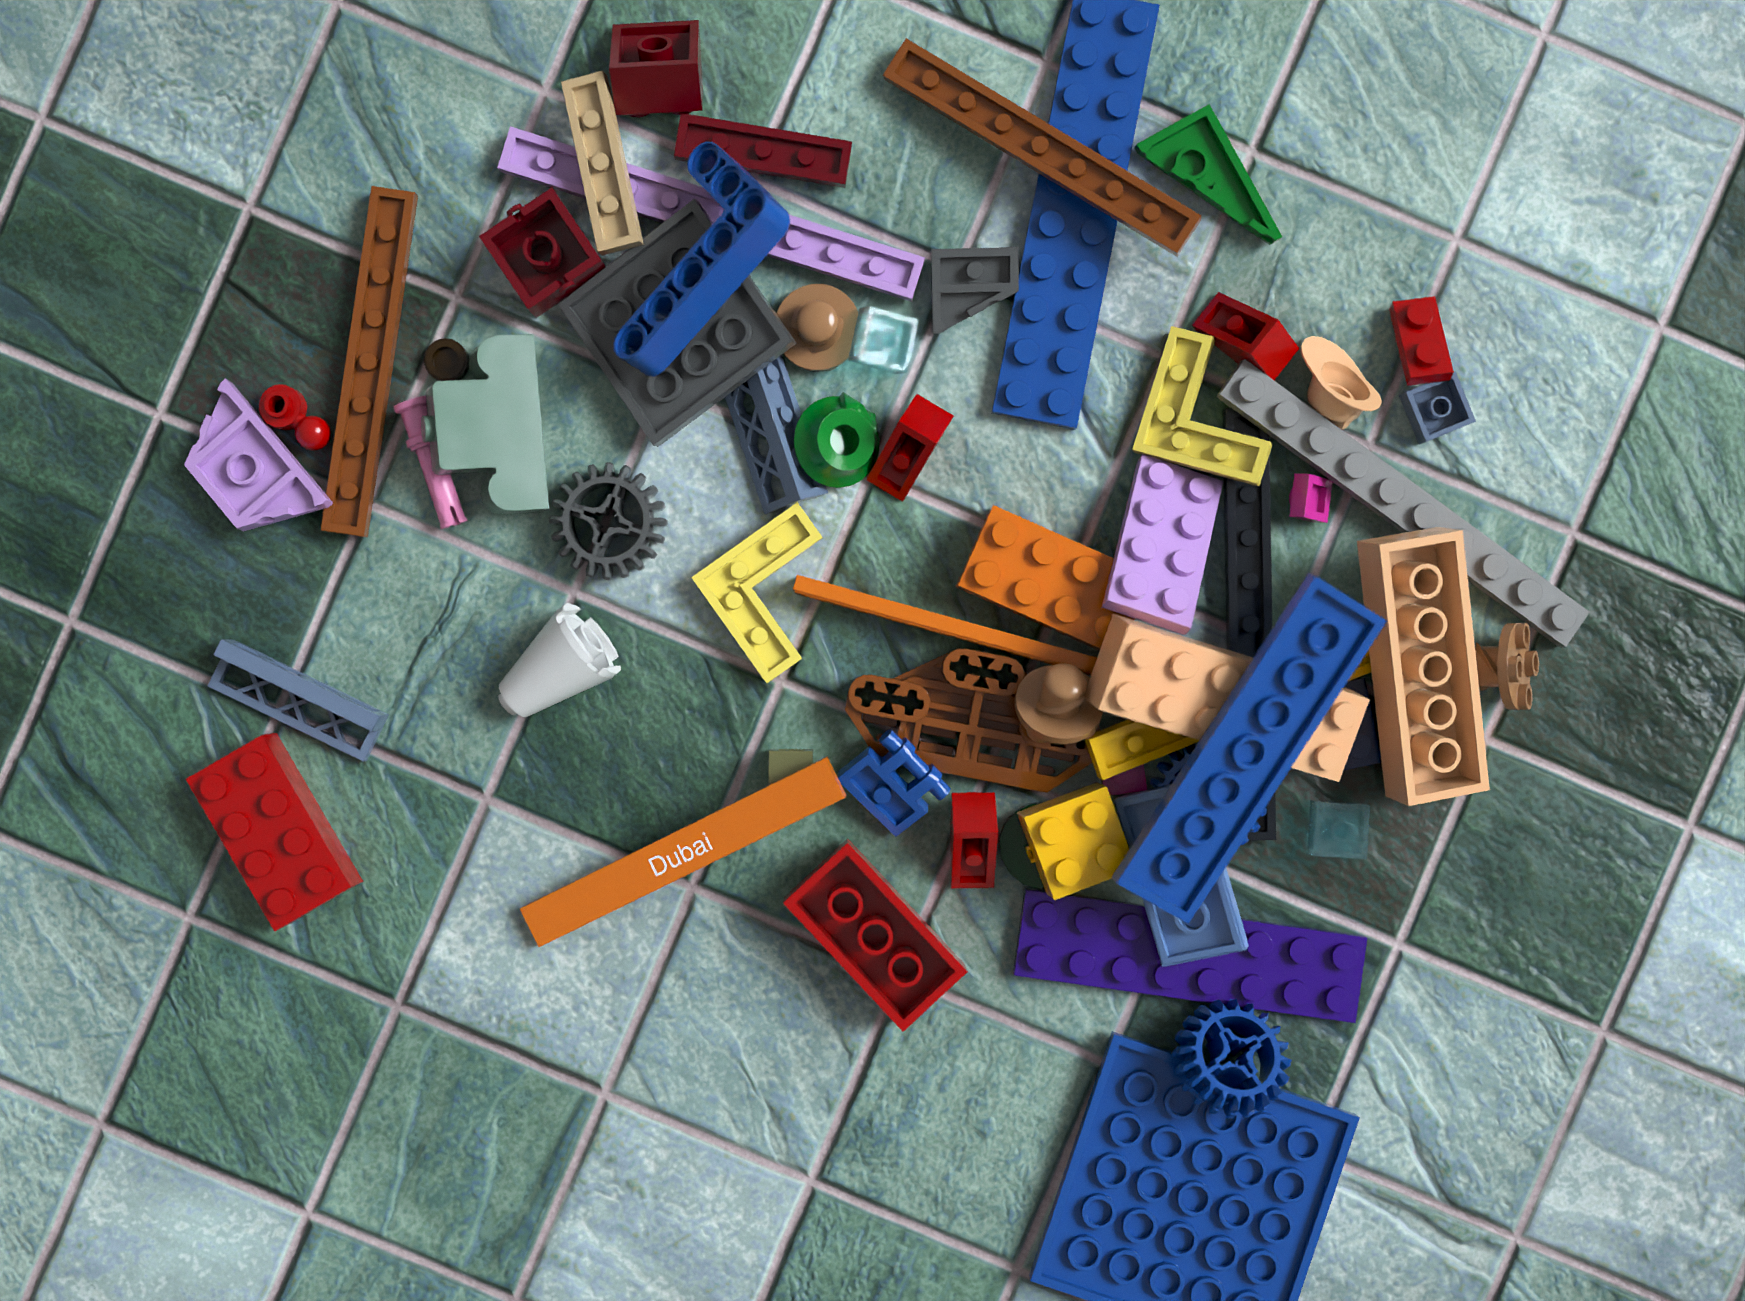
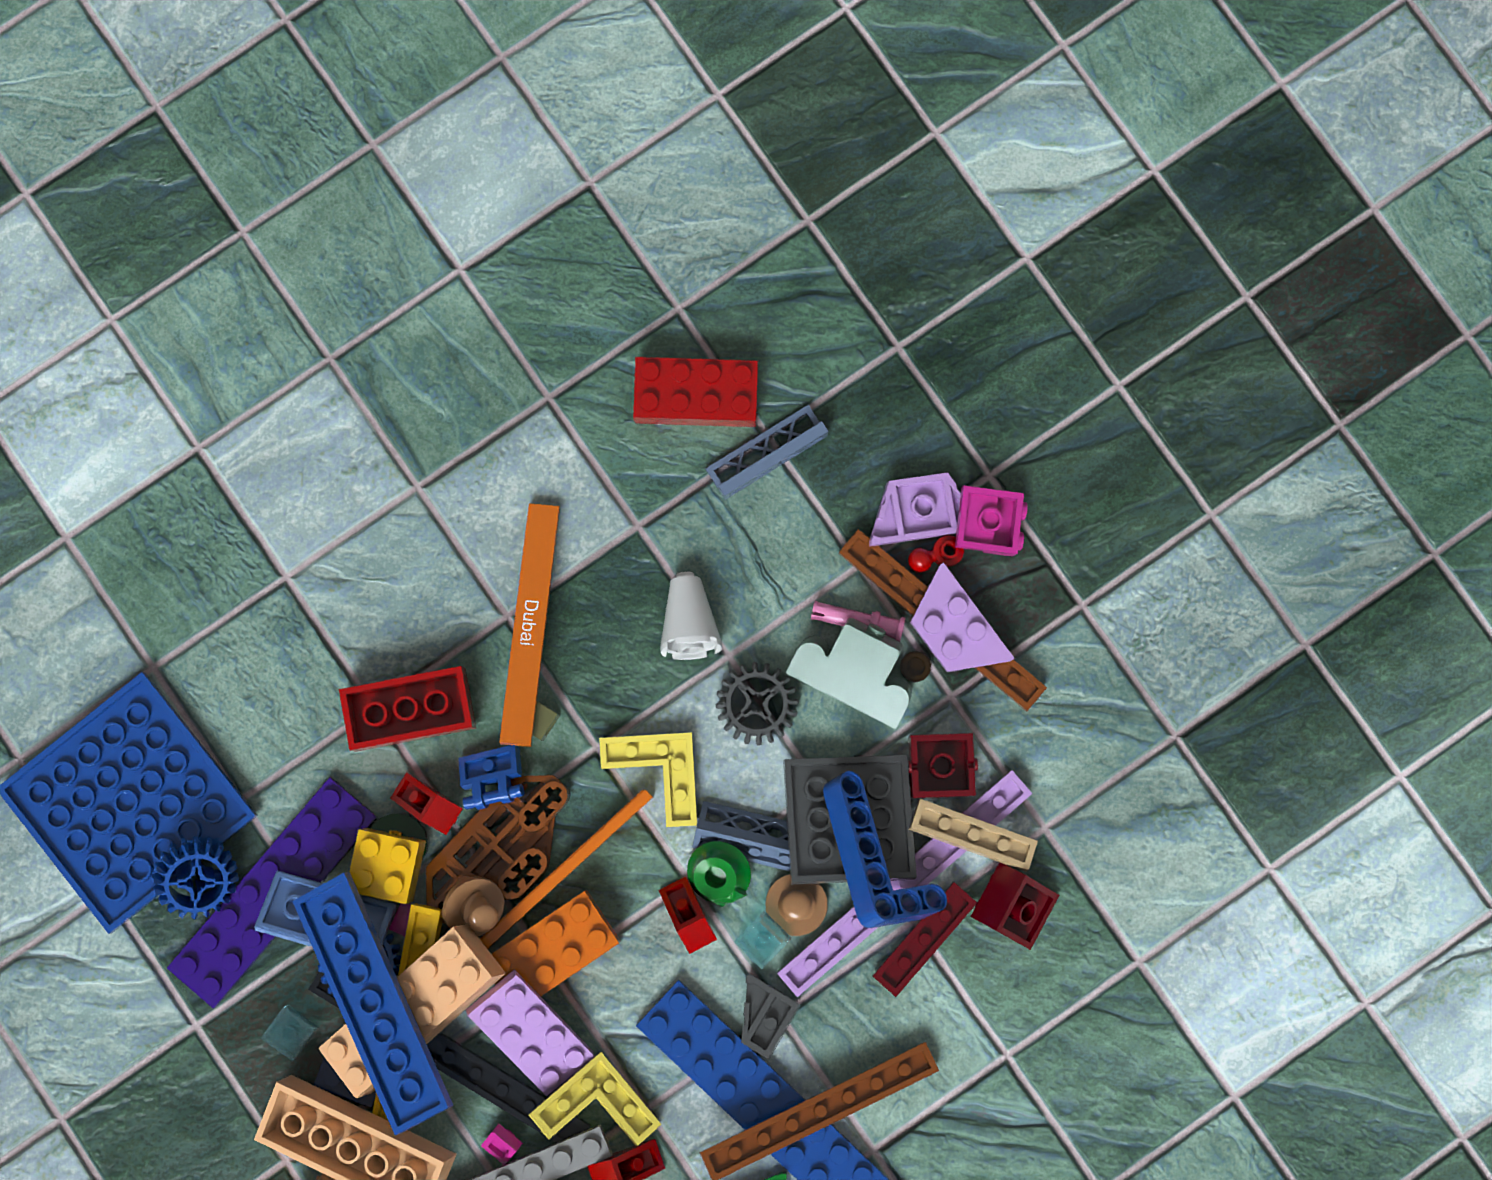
camera: 125 degrees right, 5 degrees down
(209, 375) = (990, 521): none -> dark pink plate
(365, 338) = (956, 627): none -> lavender wing

